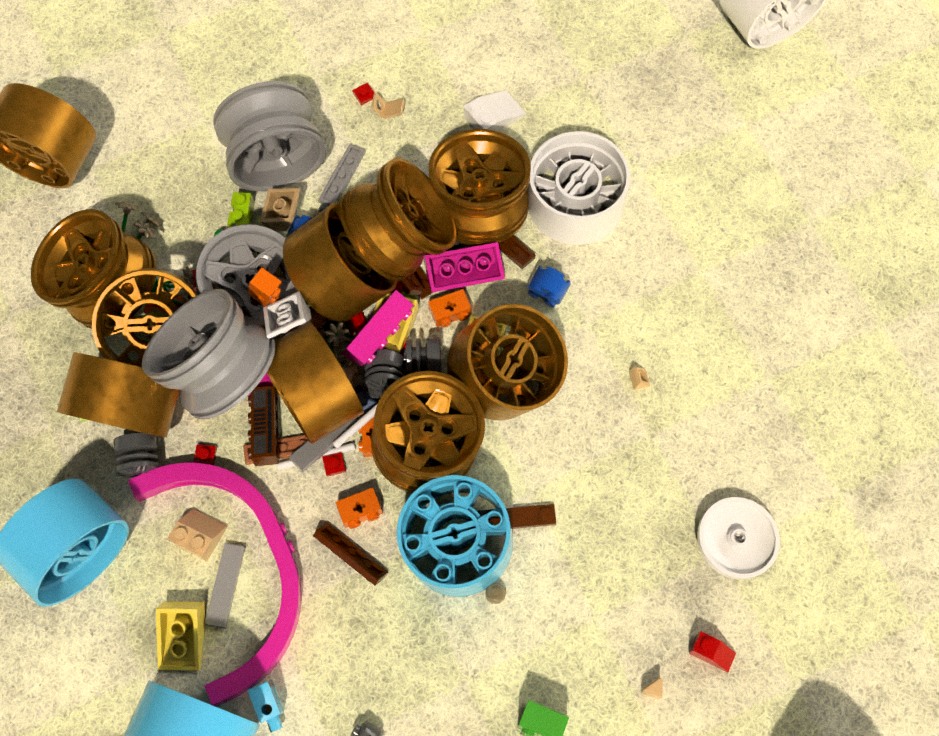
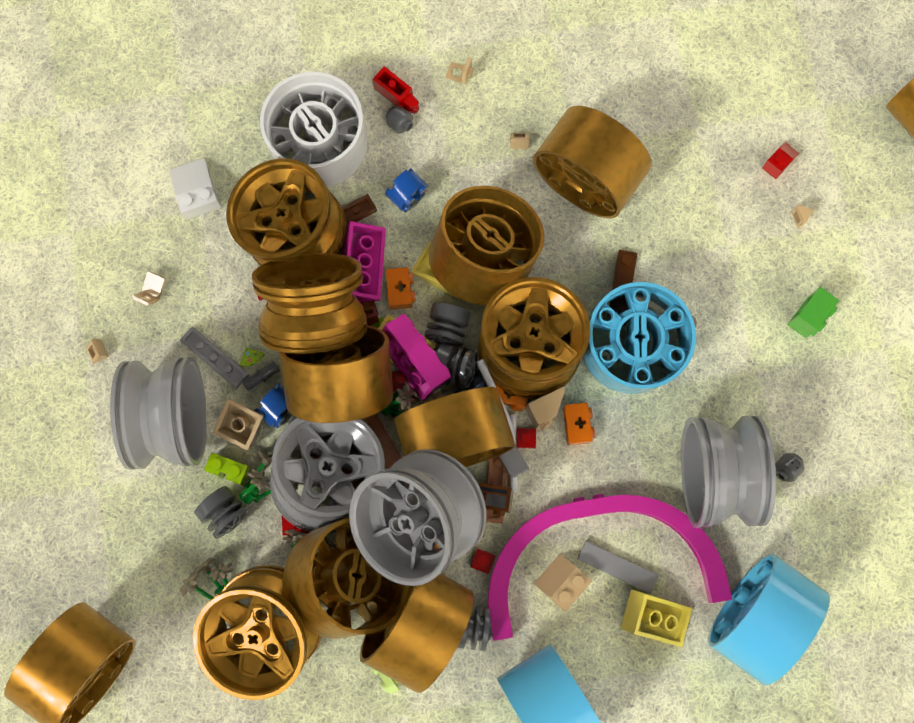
camera: 75 degrees left, 10 degrees up
(199, 217) = (219, 509): none -> dark grey wheel
(263, 695) = (740, 549): medium azure torso -> none
(264, 288) = (354, 448): orange brick -> none
(286, 314) = (394, 433): white slope -> none
(323, 85) = (96, 350): none -> tan slope
(333, 653) = (727, 471): none -> light grey wheel
(350, 554) = (619, 442): reddish brown plate -> none
(363, 93) = (123, 311): red plate -> none
(363, 470) = (545, 409): none -> tan slope
(620, 262) = (399, 119): none -> dark grey head
(625, 439) = (592, 161): none -> pearl gold wheel
(647, 249) = (395, 90): none -> red hinge
(691, 307) = (467, 71): none -> tan bracket
(738, 538) = (692, 104): white dish -> none

